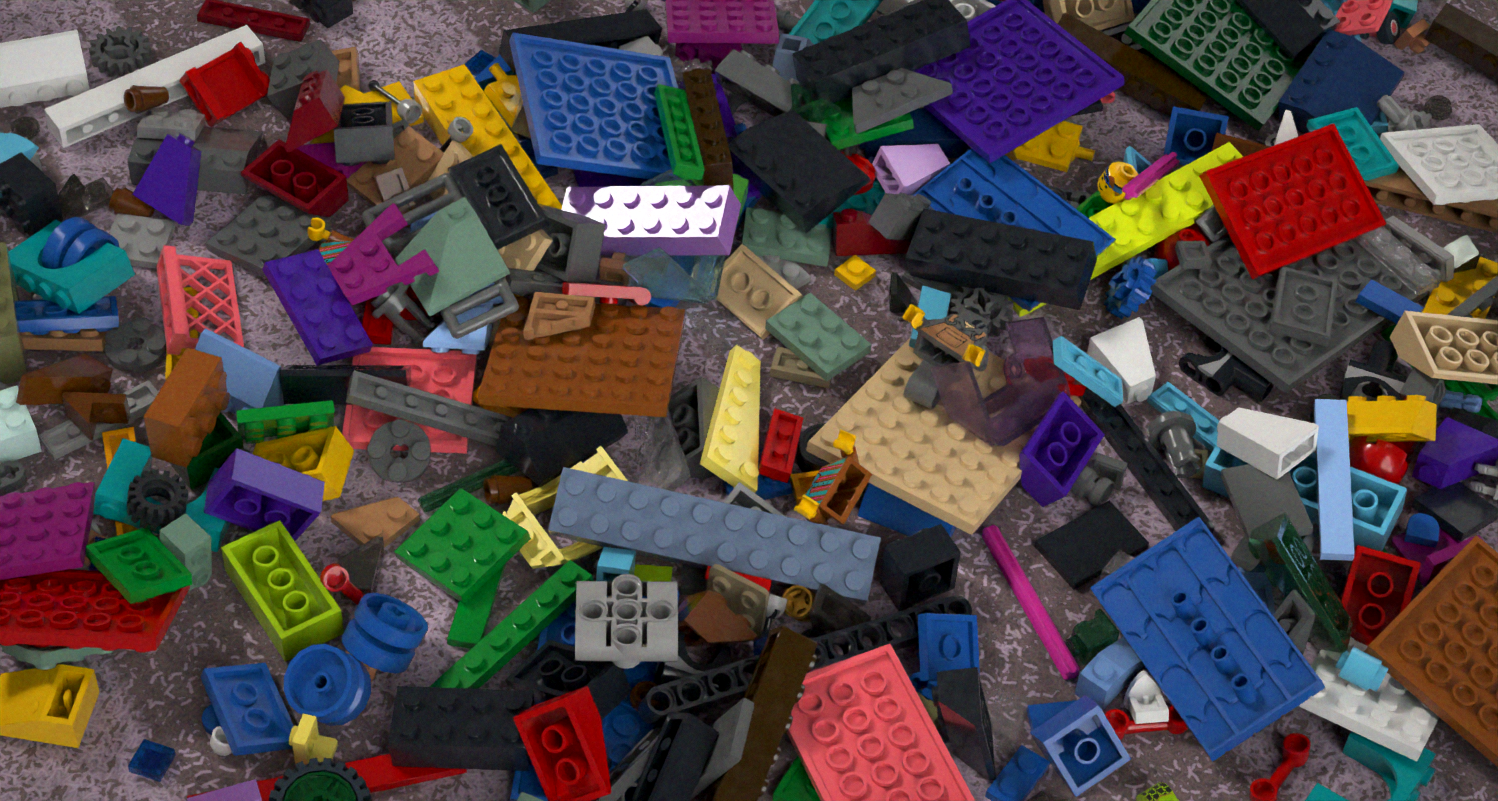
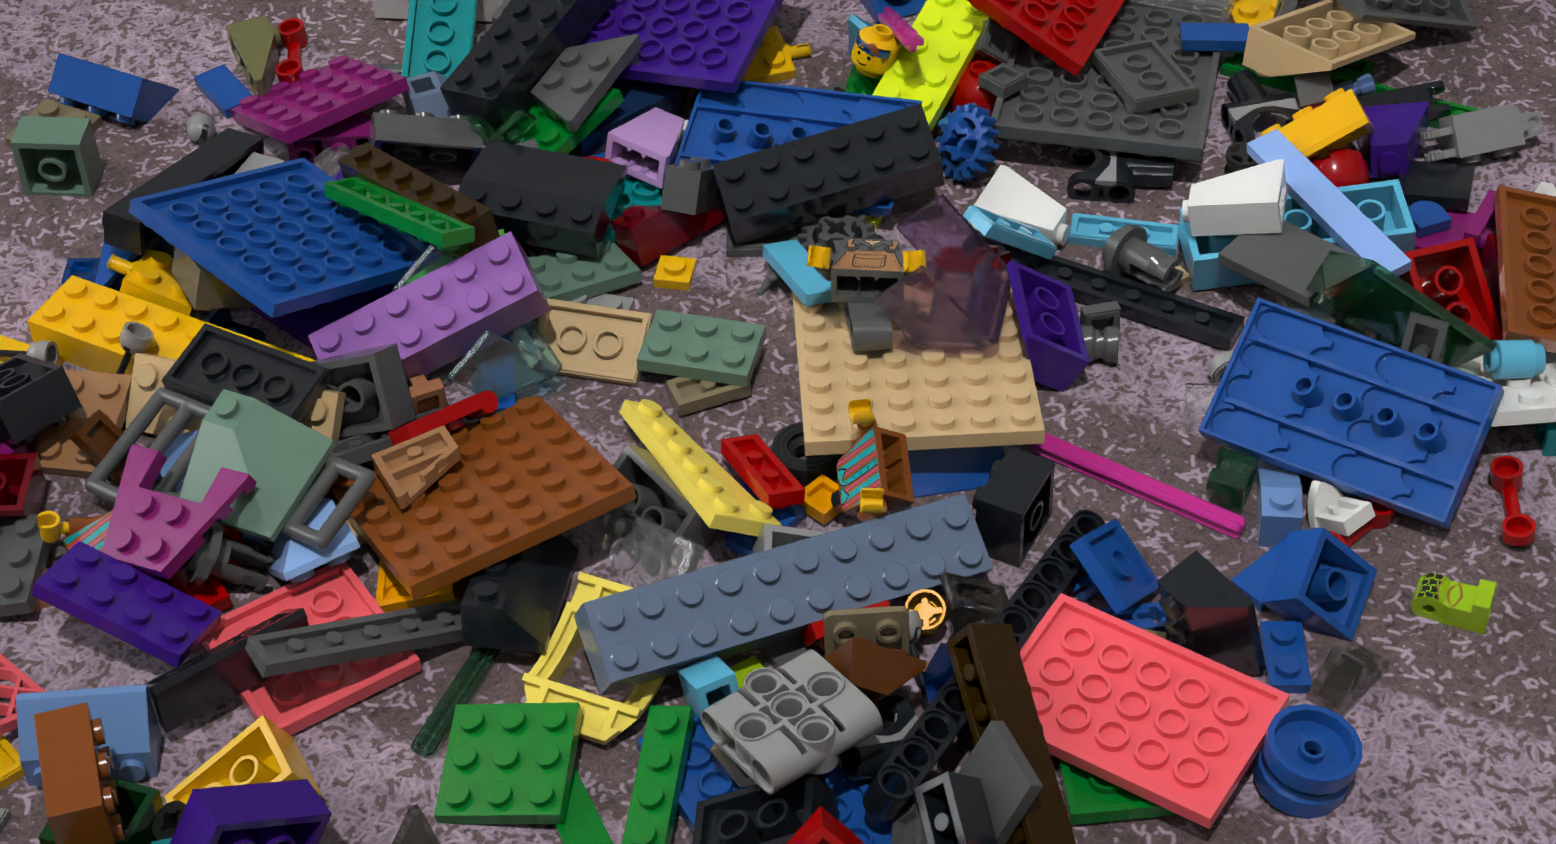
camera: 30 degrees left, 5 degrees down
(284, 420) = (200, 739): green plate -> none
(379, 519) = (382, 798): medium nougat wing -> none
(398, 469) = (339, 685): dark grey plate -> none
(501, 488) = (501, 680): reddish brown cone -> none
(640, 692) = (851, 789): reddish brown plate -> none
(898, 294) = (739, 271): pearl dark grey slope -> none
(1089, 542) = (1143, 399): black tile -> none

